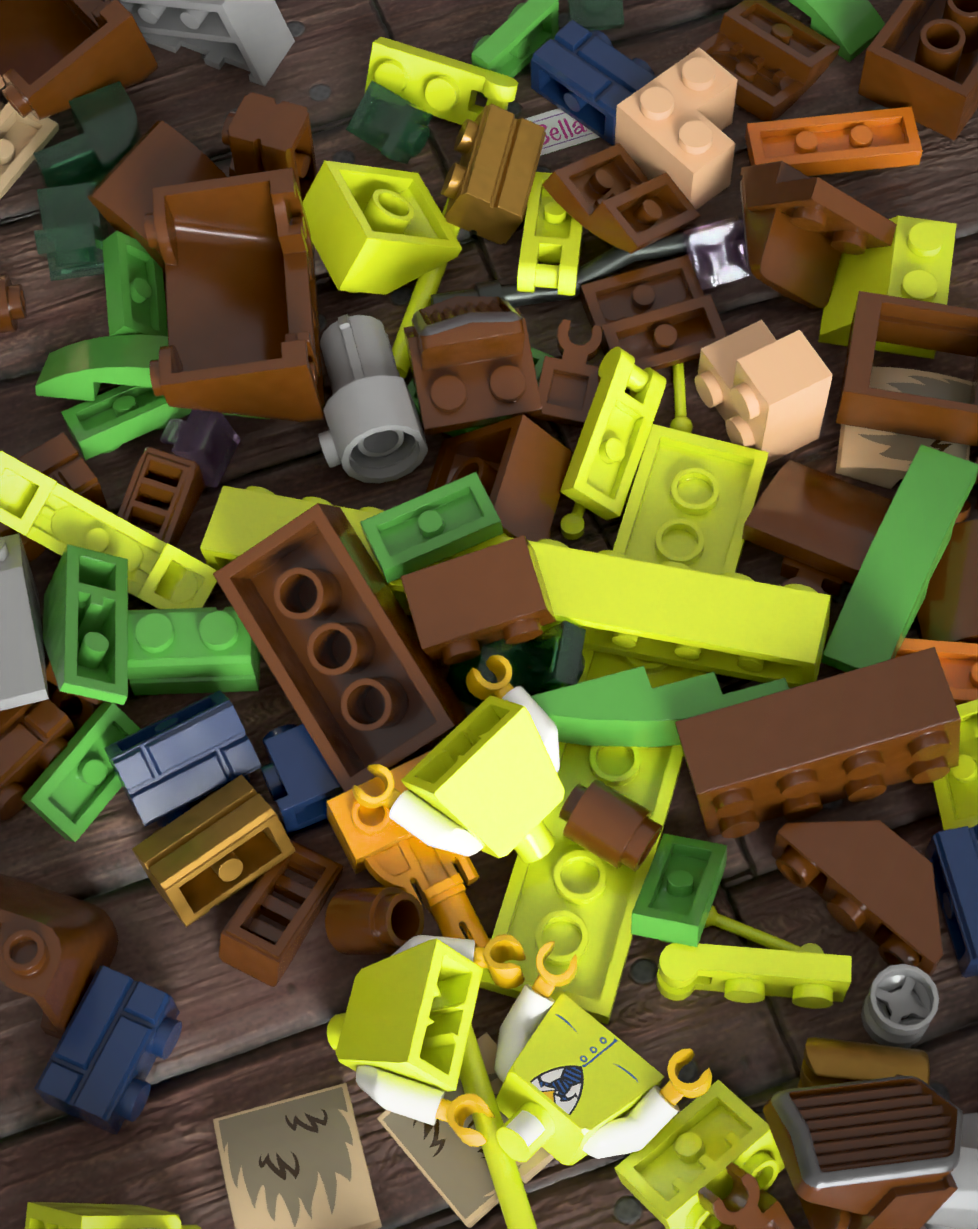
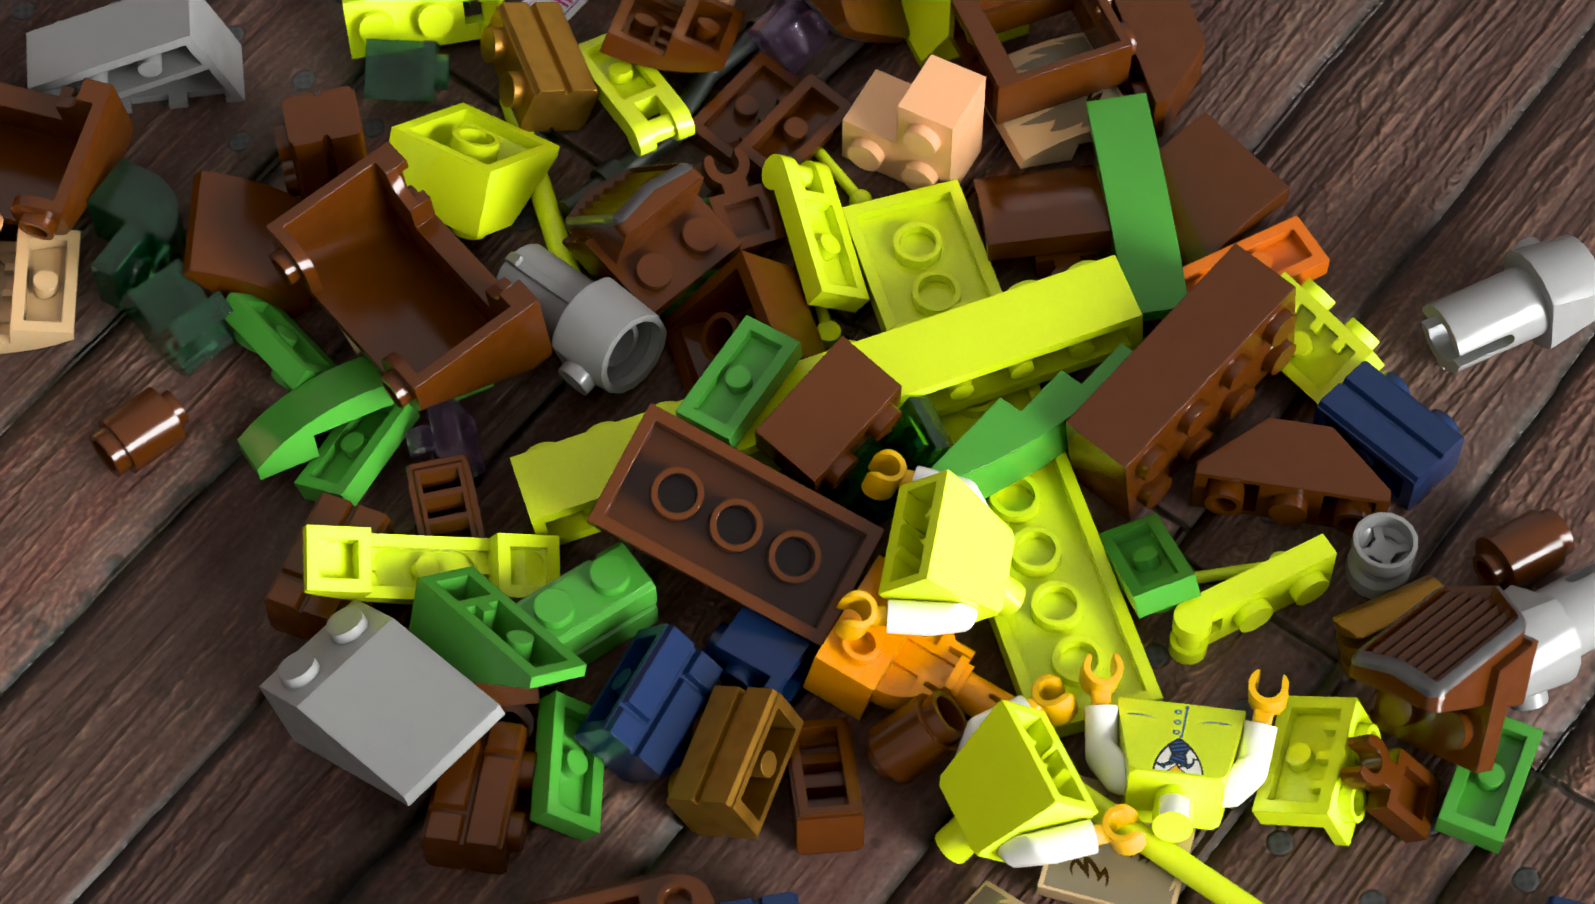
camera: 35 degrees left, 5 degrees down
(609, 825) = (1060, 543): reddish brown brick -> none

